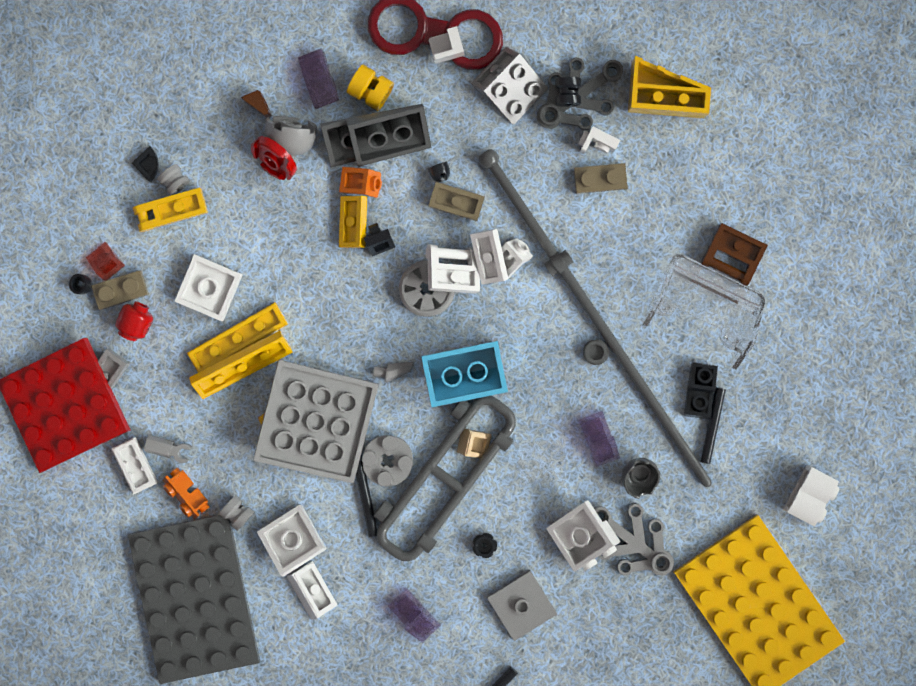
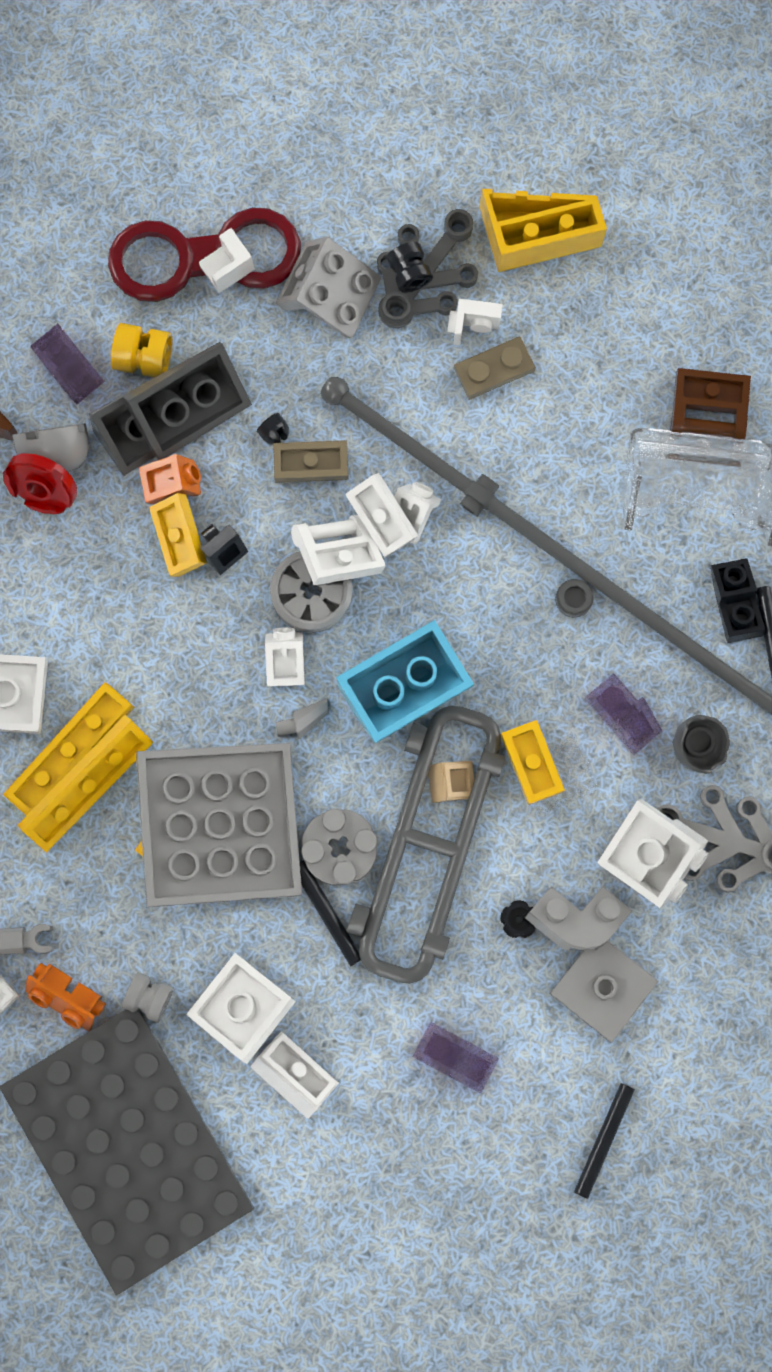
camera: 25 degrees left, 10 degrees down
(394, 326) = (284, 657): none -> white bracket
(519, 566) = (576, 928): none -> light grey plate
(528, 451) = (532, 762): none -> yellow plate

